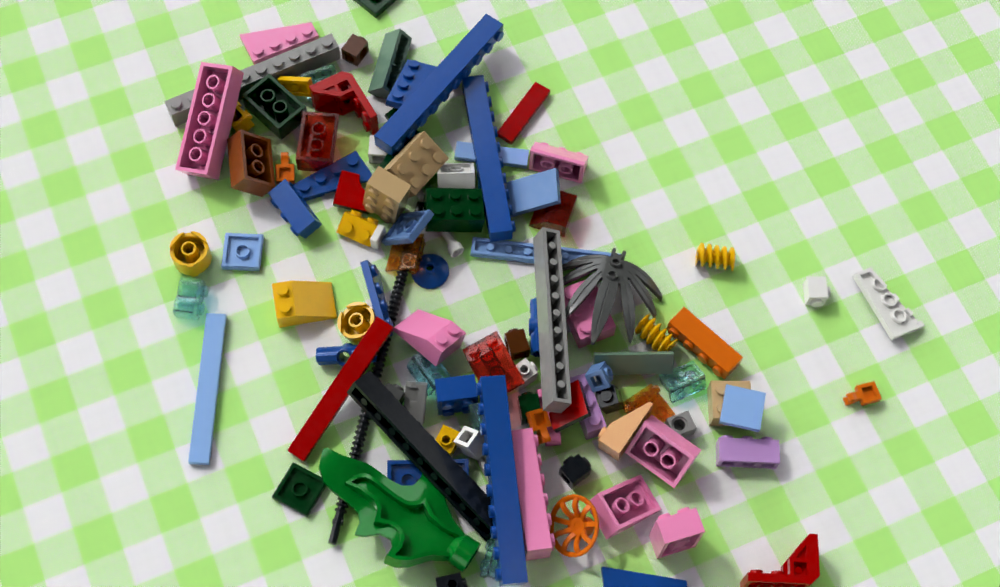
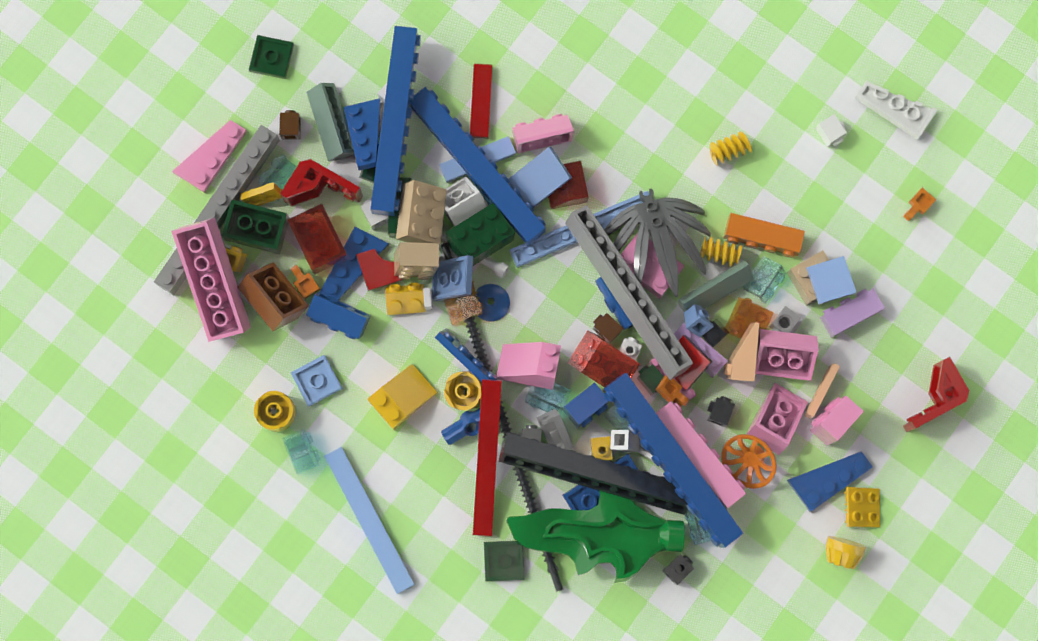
camera: 30 degrees left, 15 degrees up
(683, 502) = (822, 390): none -> light nougat tile

